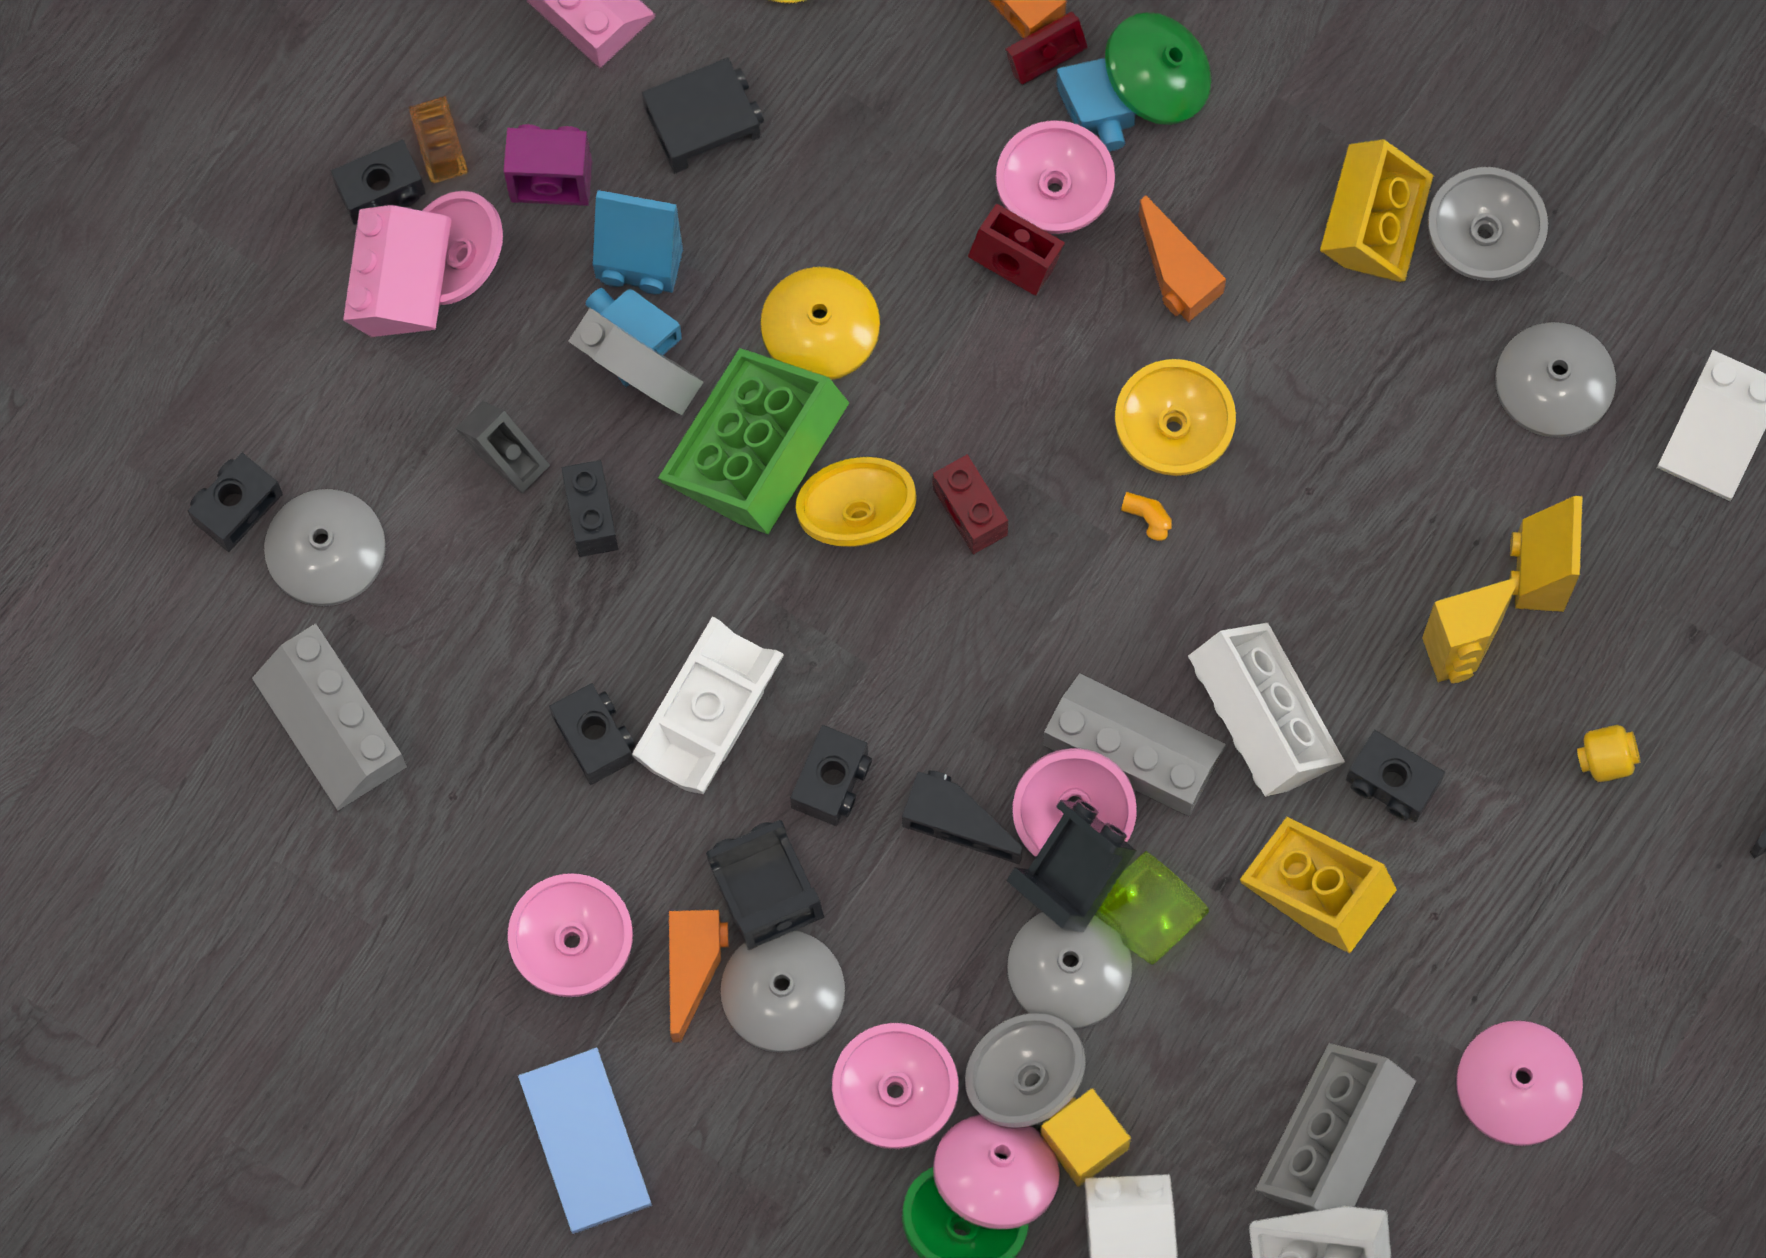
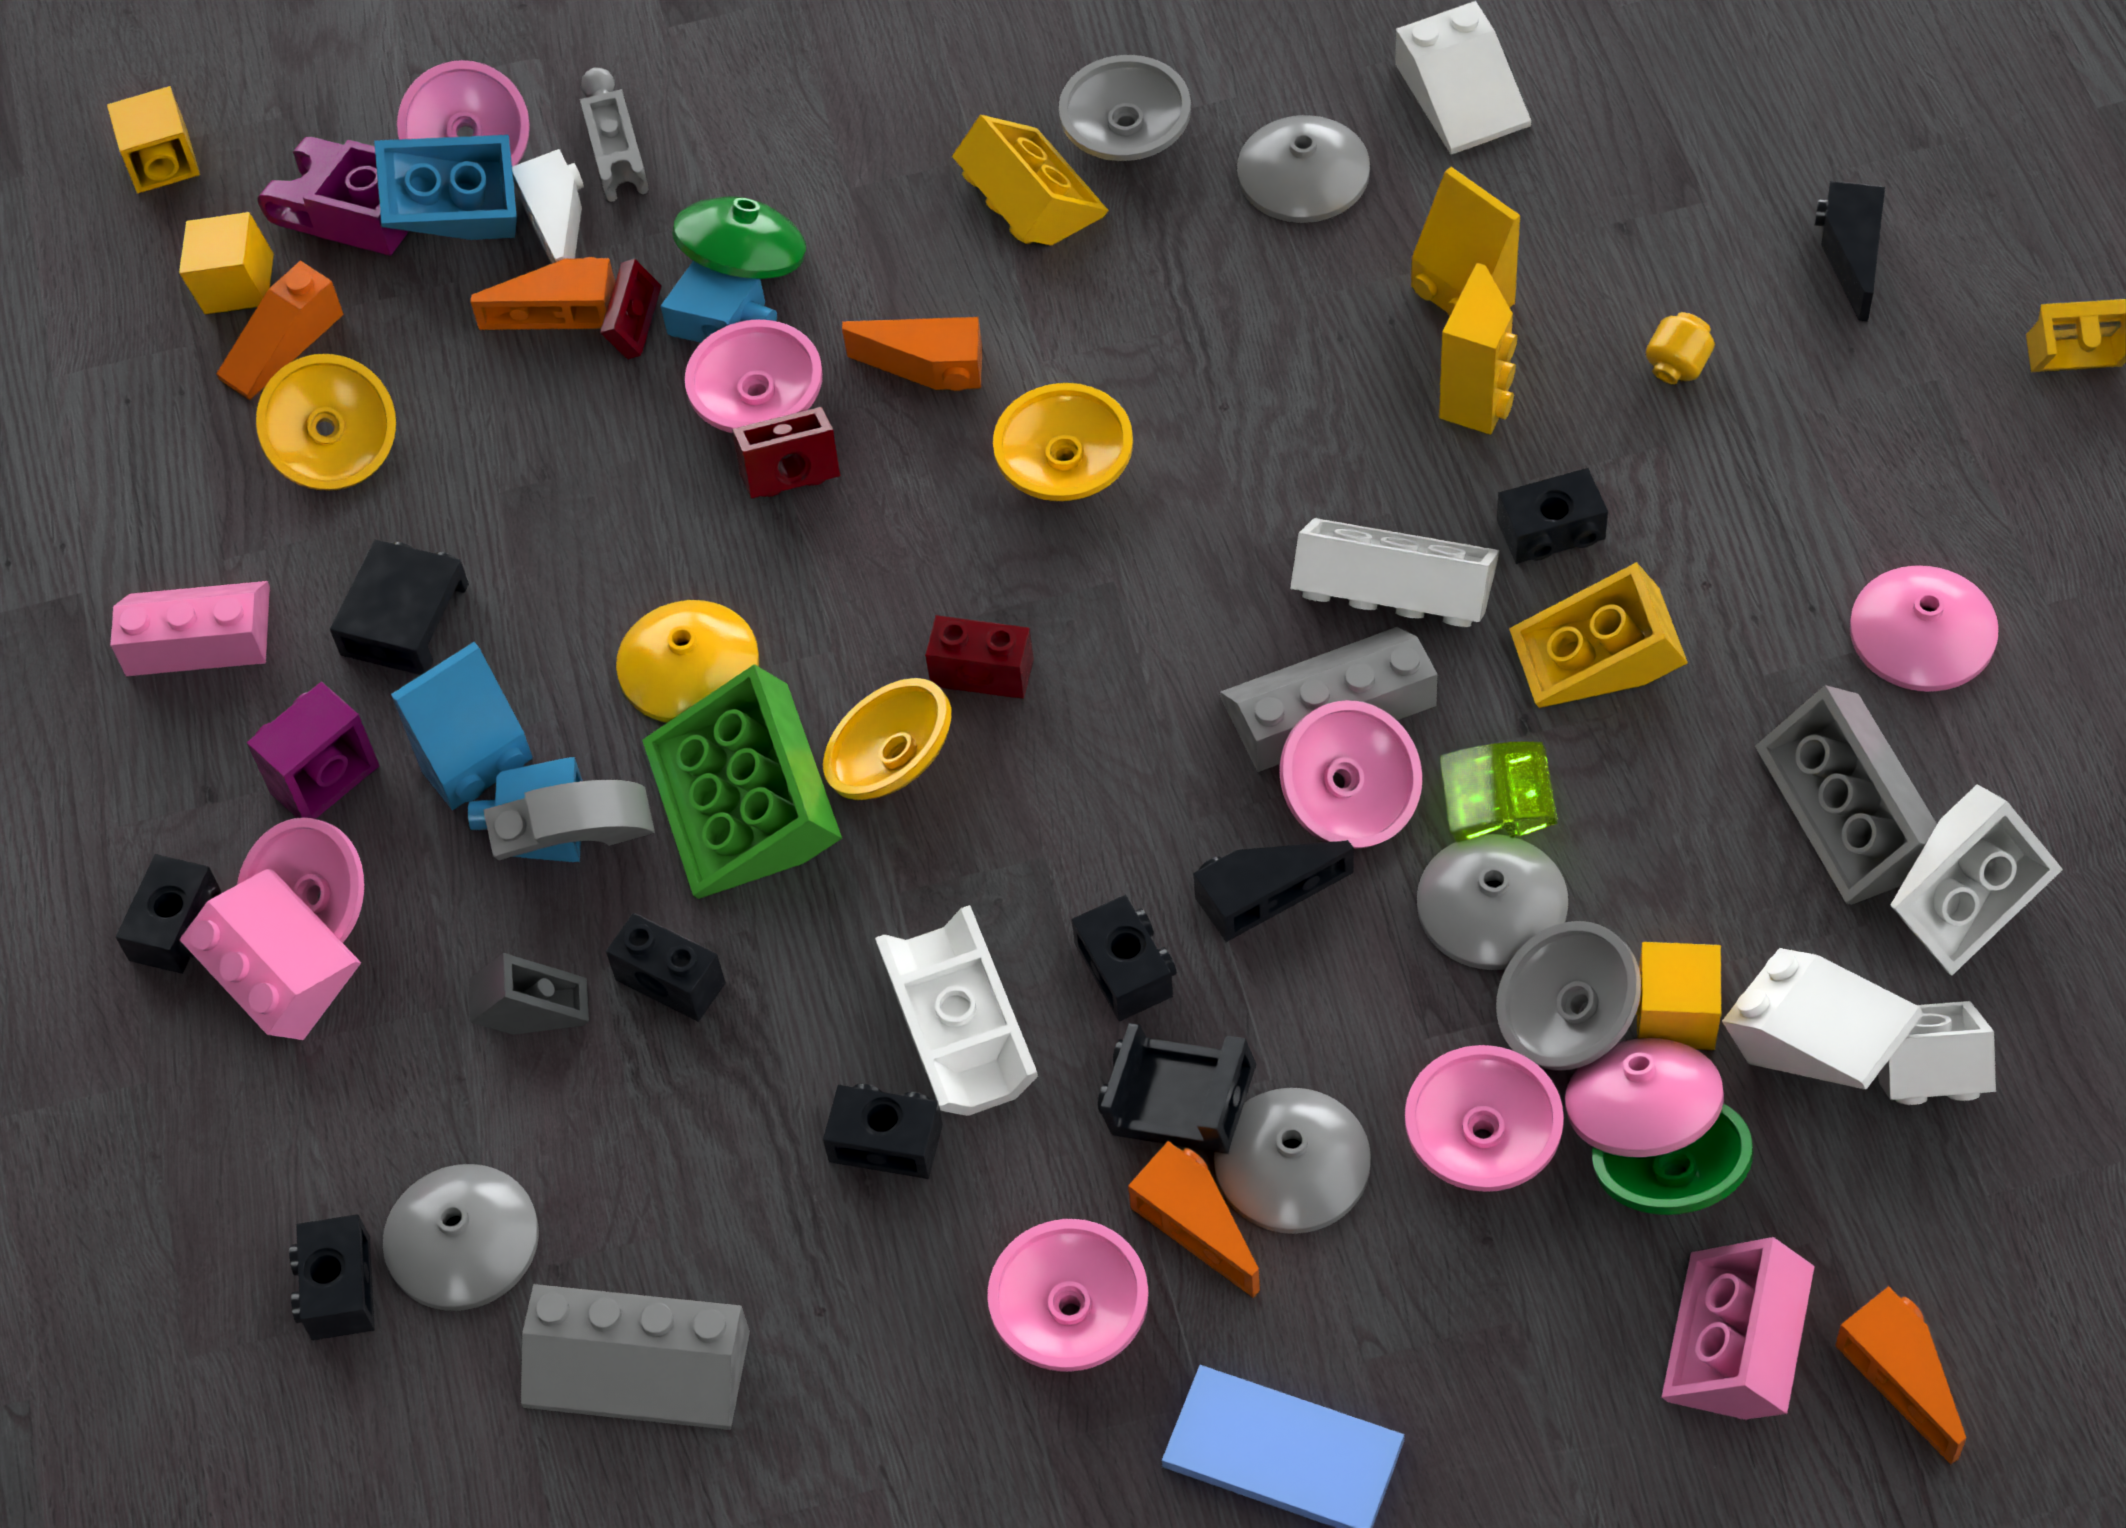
camera: 45 degrees left, 15 degrees down
(445, 161) = (211, 848): clear orange slope -> none
(1075, 867) = (1408, 805): black panel -> none
(1153, 513) = (1123, 529): light orange arm -> none

